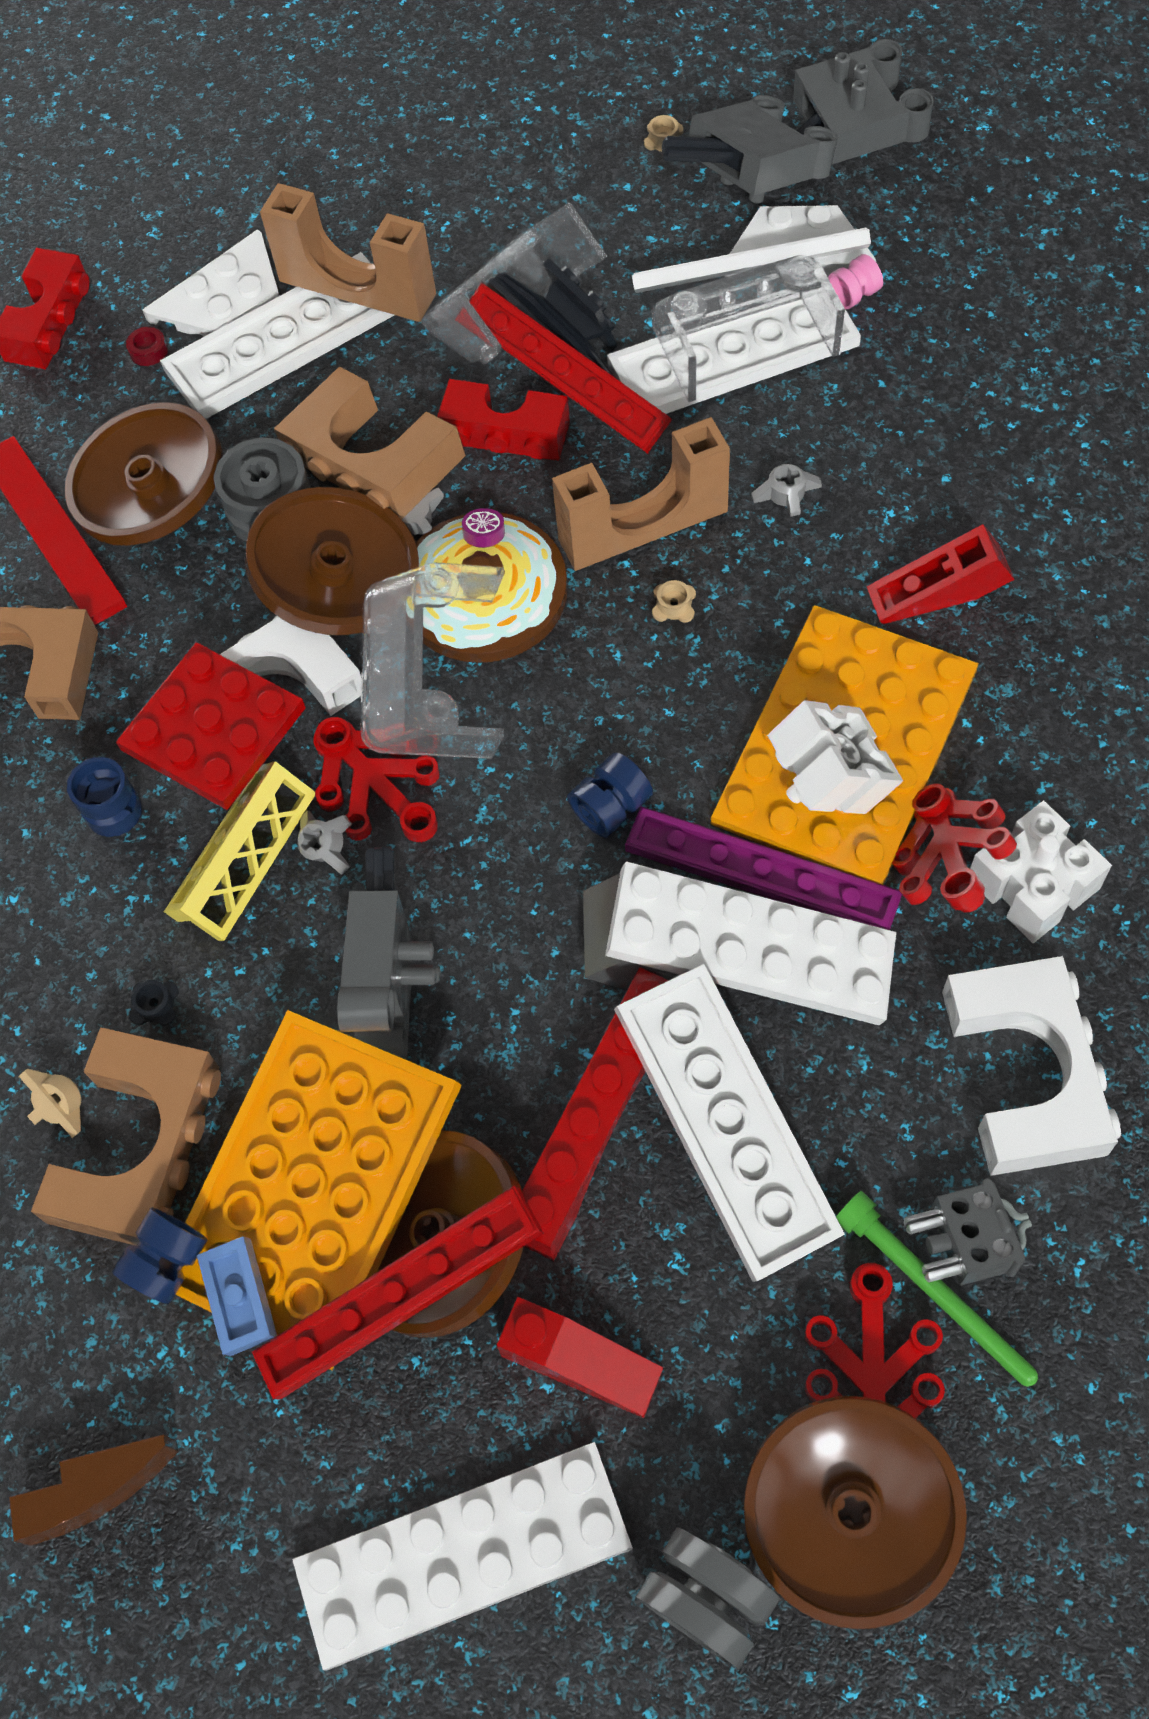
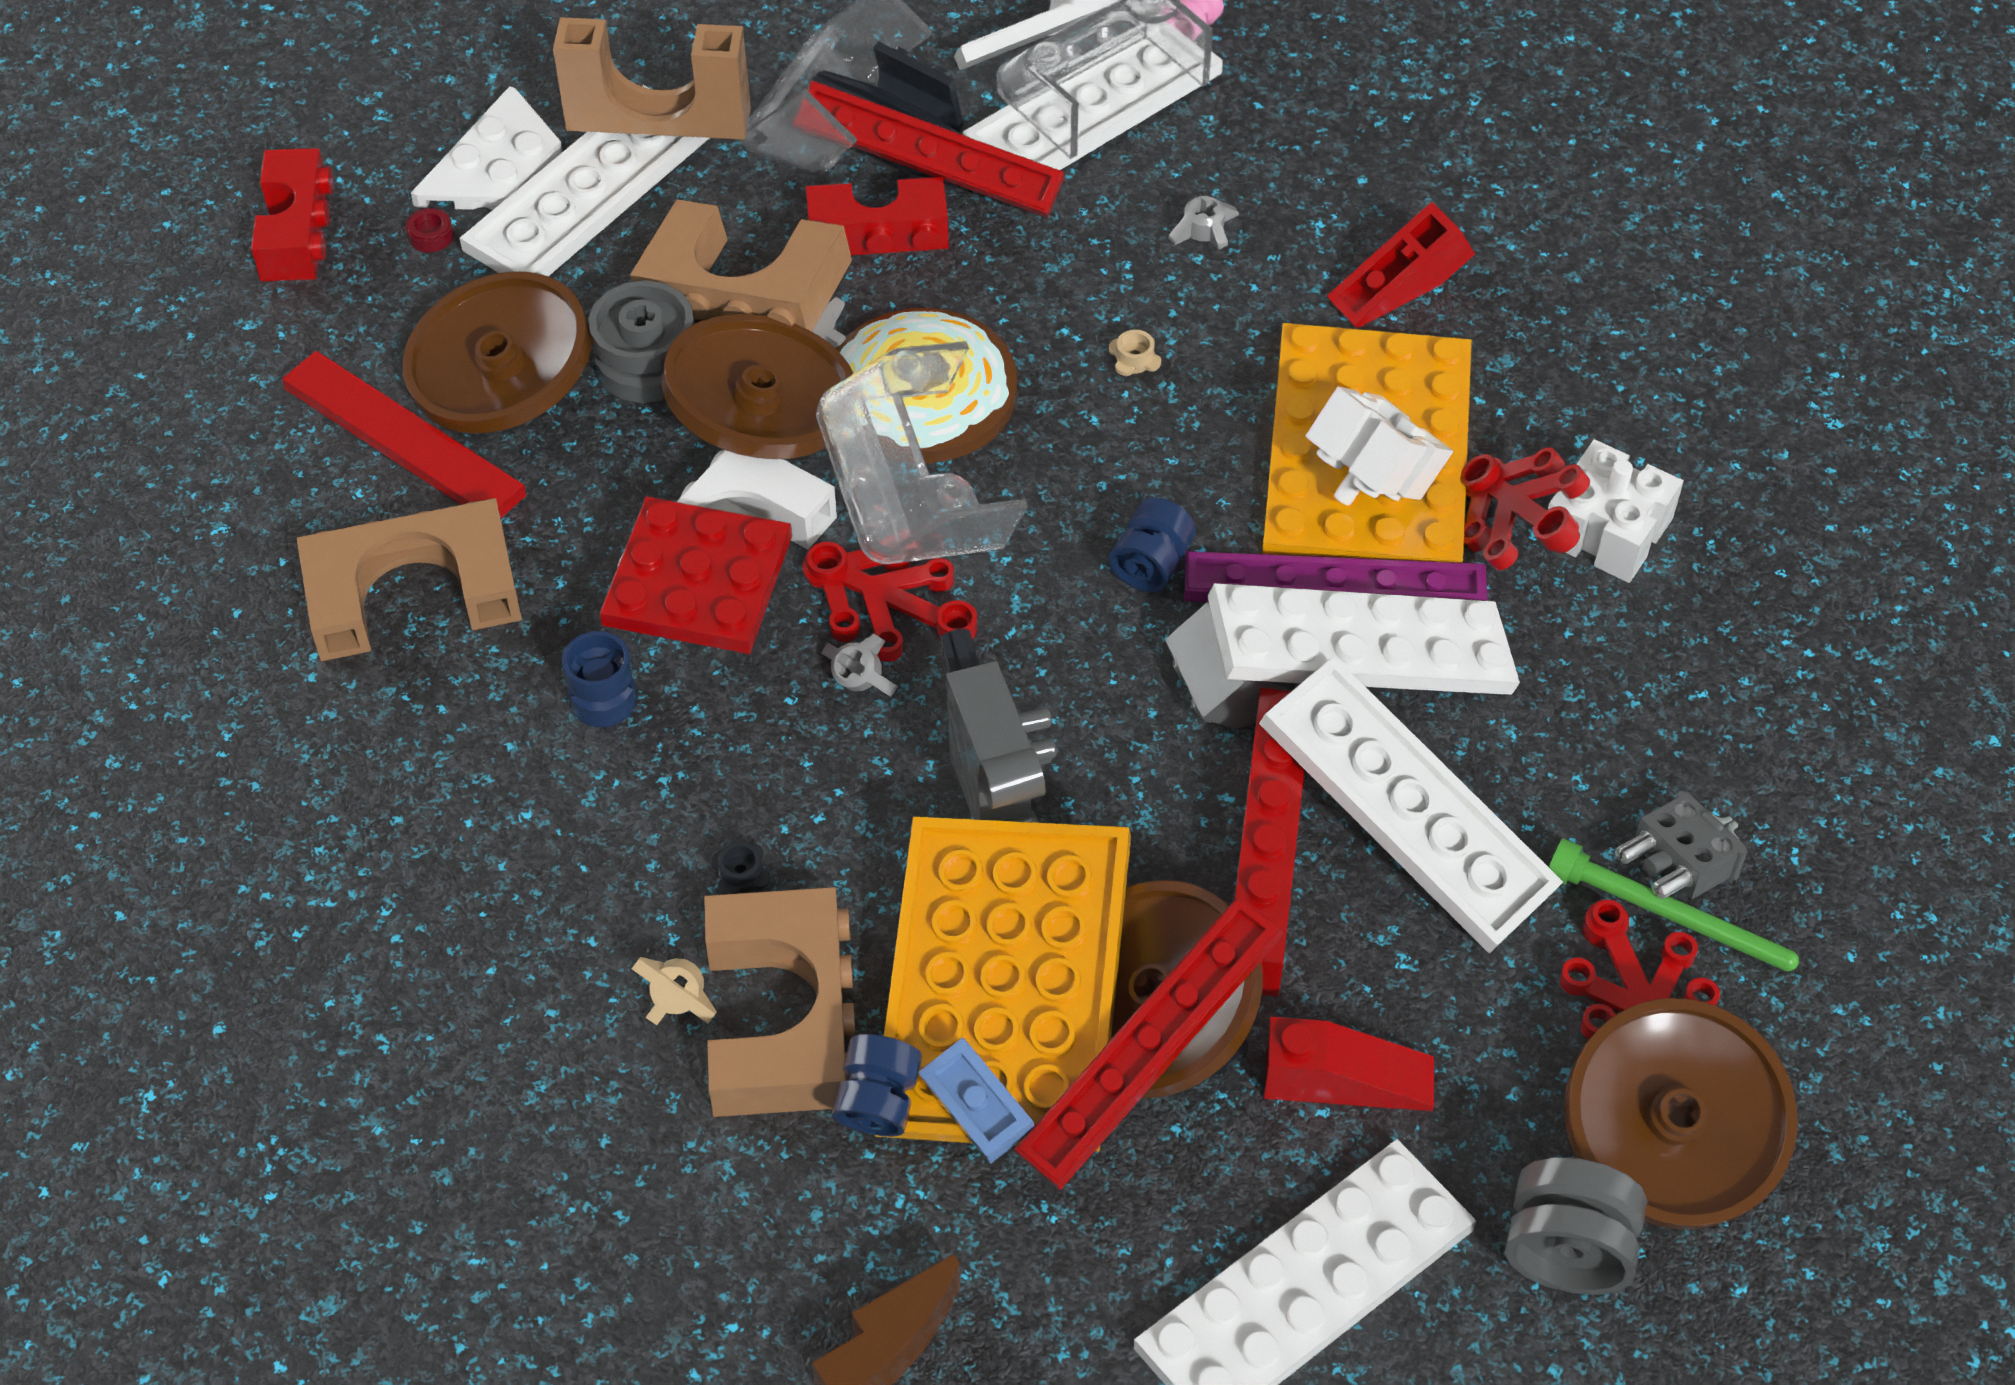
camera: 25 degrees left, 10 degrees down
(227, 841) = (754, 697): light yellow fence -> none
(483, 527) = (907, 322): magenta tile -> none
(689, 494) = (1030, 295): medium nougat arch -> none
(1042, 1001) = (1667, 627): white arch -> none

